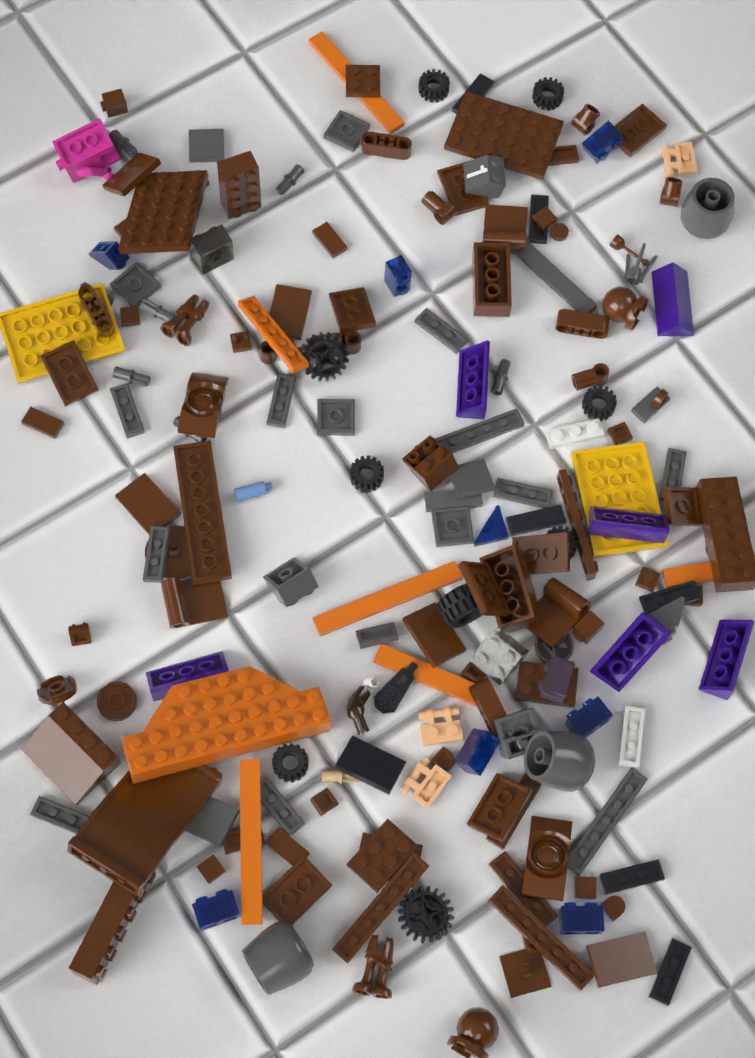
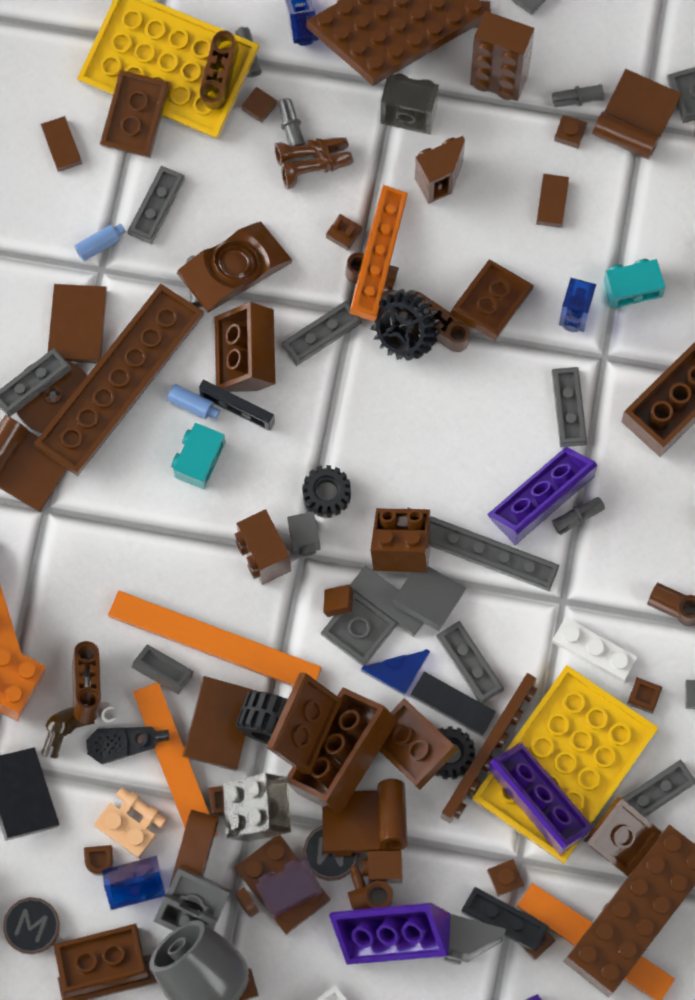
camera: 50 degrees right, 5 degrees up
(116, 454) = (99, 241): none -> medium blue cylinder
(131, 376) = (194, 171): dark grey axle -> none
(135, 285) = (298, 75): dark grey tile -> none
(251, 441) = (245, 348): none -> reddish brown slope
(260, 268) = (439, 168): none -> reddish brown slope
(277, 471) = (237, 405): none -> black tile
(283, 513) = (198, 455): none -> teal brick
(290, 309) = (429, 243): reddish brown tile -> none
(291, 582) = (133, 533): dark grey slope -> none
(303, 200) = (570, 131): none -> reddish brown plate
(328, 165) = (636, 114): none -> reddish brown door
(336, 417) = (359, 401): dark grey tile -> none
(347, 675) = (86, 695): none -> reddish brown beam
(367, 526) = (263, 546): none -> reddish brown brick
(378, 504) = (304, 534): none -> dark grey brick
(412, 244) = (634, 283): none -> teal brick
(429, 521) = (338, 600): none -> reddish brown tile
(430, 787) = (56, 873): light nougat plate -> none
(445, 825) = (31, 926): none -> black tile
(541, 708) = (247, 902): none -> reddish brown tile
(589, 718) = (283, 959): clear blue brick -> none
(592, 651) = (360, 896): none -> reddish brown piece
(603, 394) = (661, 625): black tyre -> none

